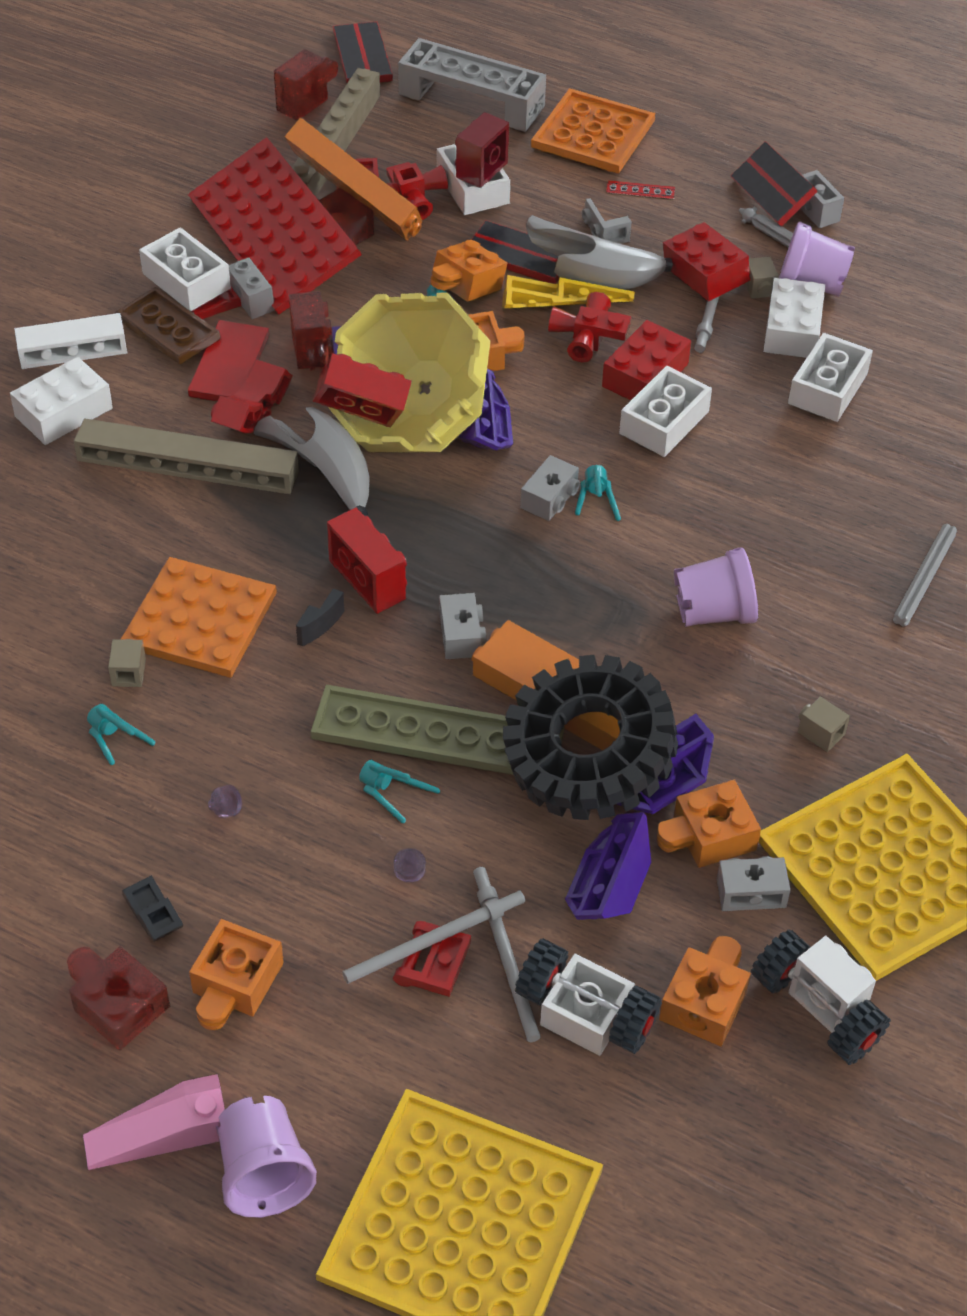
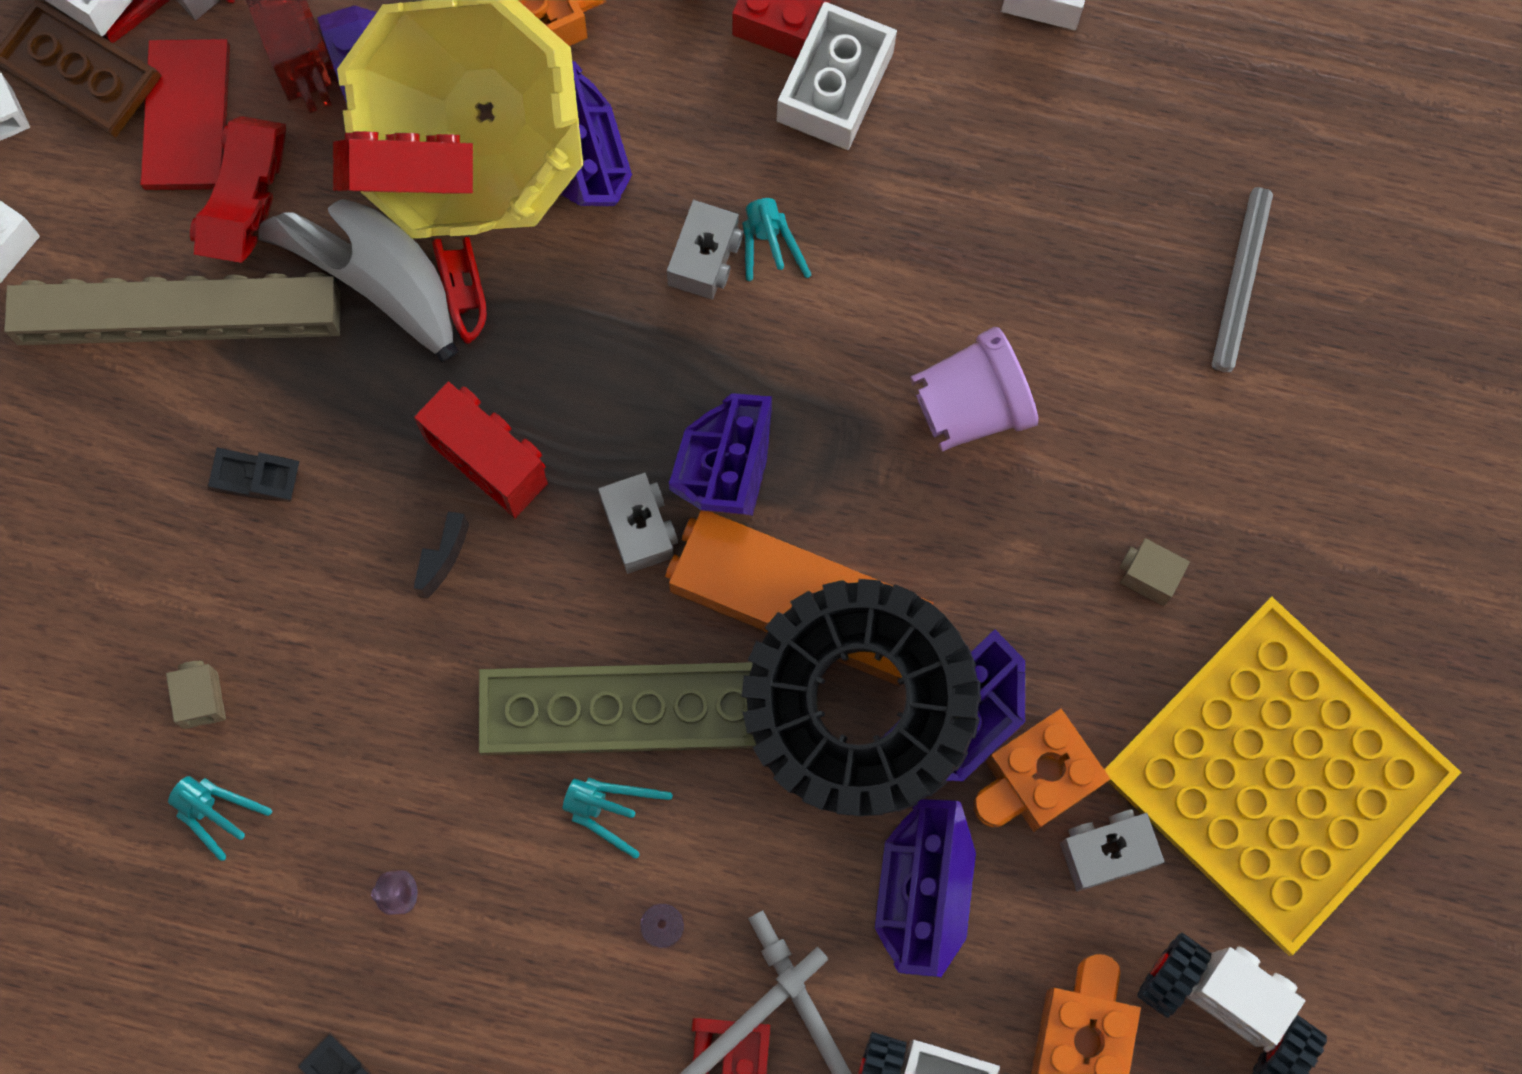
camera: 15 degrees left, 25 degrees up
(200, 616) = (271, 585): orange plate -> none
(202, 552) = (253, 476): none -> black slope
(377, 485) = (461, 297): none -> red piece
(534, 598) = (725, 456): none -> dark purple wedge

